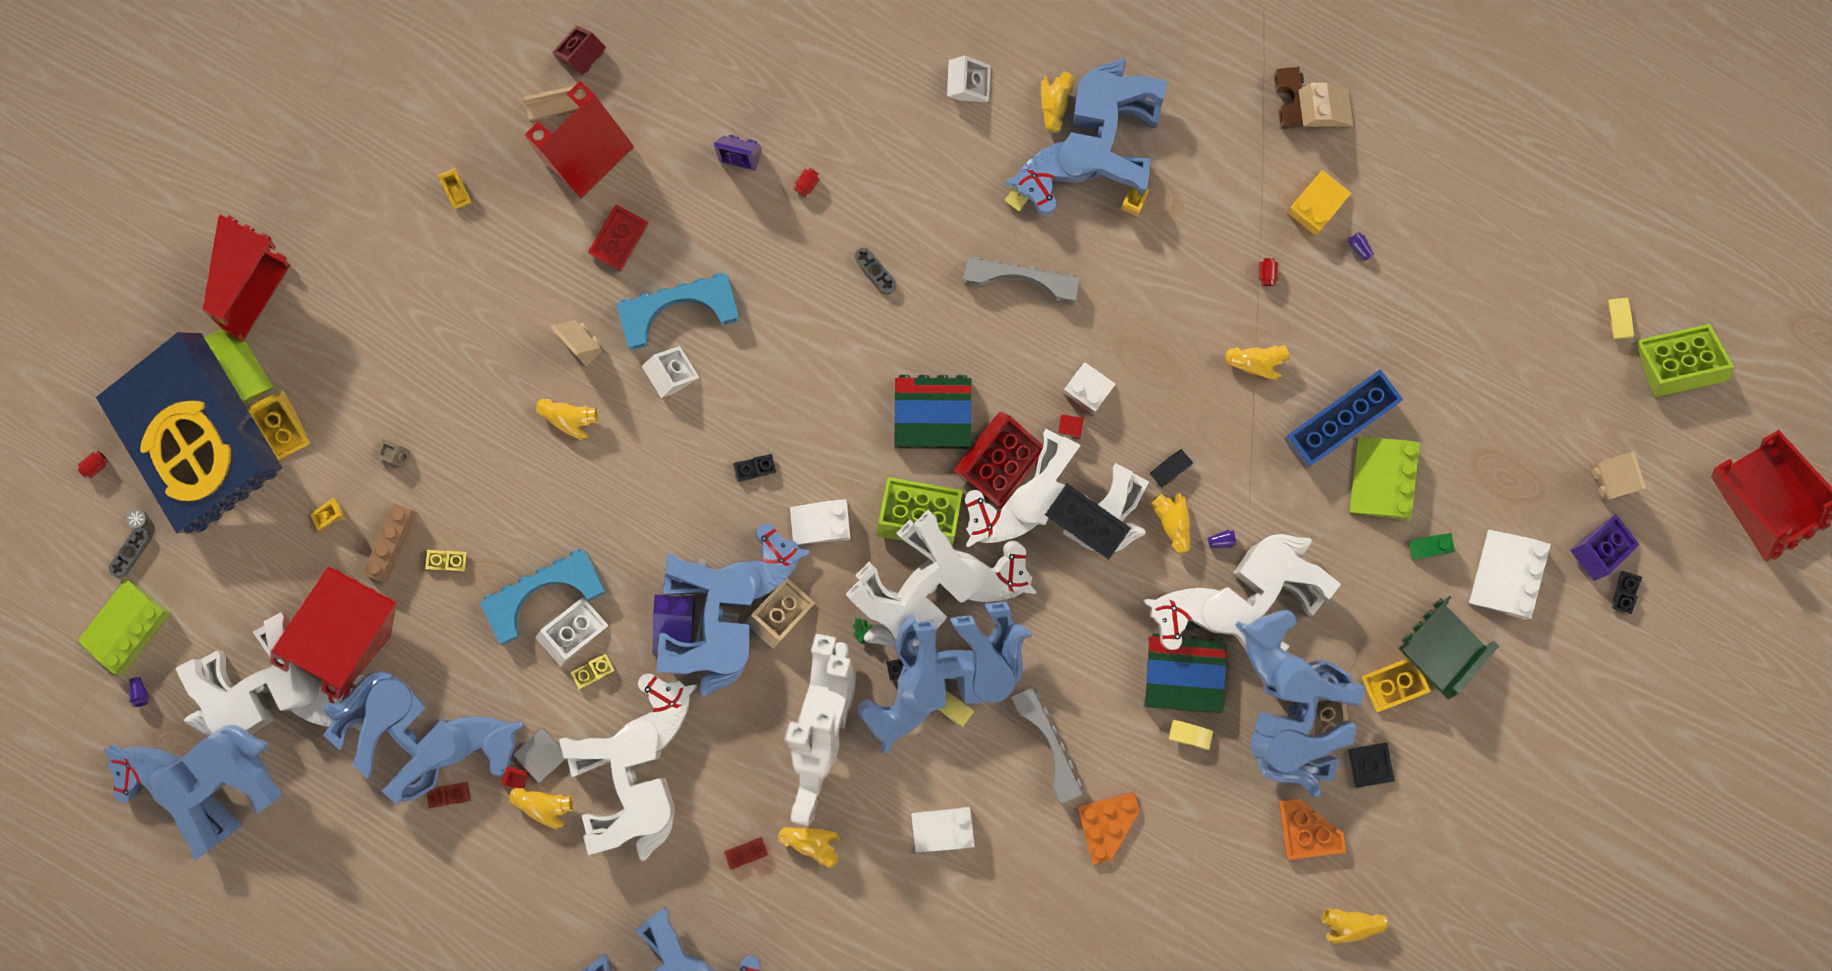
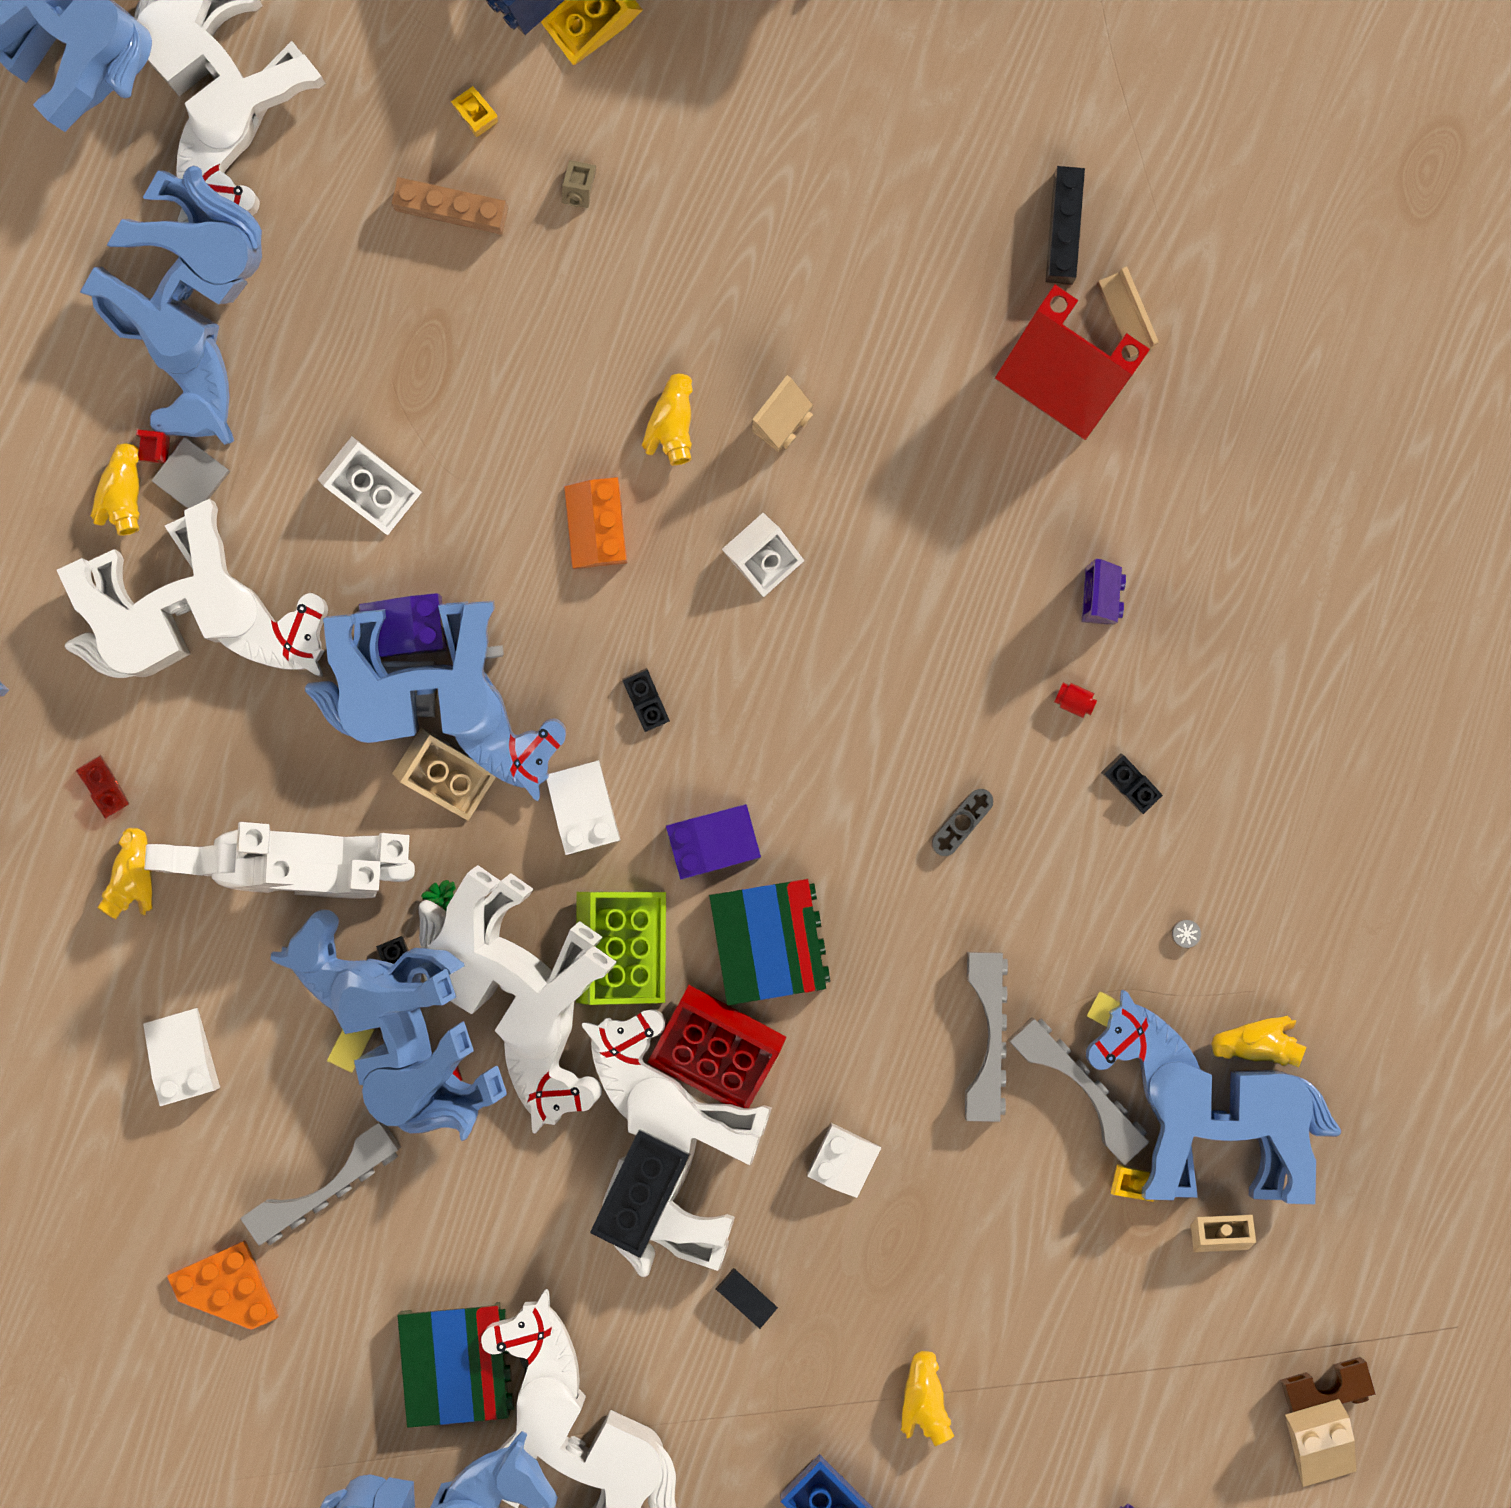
camera: 80 degrees right, 5 degrees up
(336, 631) = (304, 158): red windscreen -> none
(445, 560) = (439, 289): light yellow slope -> none
(448, 795) = (115, 359): clear red slope -> none
(454, 188) = (975, 195): yellow slope -> none
(486, 134) = (1065, 225): none -> black brick
(504, 608) = (385, 384): dark azure arch -> none
(579, 50) = (1214, 334): dark red slope -> none
(592, 671) = (318, 524): light yellow slope -> none
(618, 237) = (946, 443): red plate -> none
(627, 480) = (596, 523): none -> orange slope
(639, 313) = (838, 494): dark azure arch -> none
(858, 439) = (713, 841): none -> dark purple slope
(869, 156) = (1132, 783): none -> black slope
(968, 80) = (1270, 909): white slope -> none
(975, 137) = (1186, 933): none -> light grey tile
(1071, 426) = (782, 1143): red panel -> none
(1099, 204) = (1116, 1130): none -> light grey arch
(1174, 520) = (671, 1315): yellow animal -> none
(1177, 146) = (1223, 1233): none -> tan brick
(1191, 735) = (370, 1386): light yellow slope -> none
(1224, 539) = (656, 1388): dark purple cone -> none
(1268, 272) = (1059, 1395): red brick -> none
(1318, 203) = (1176, 1453): yellow slope -> none

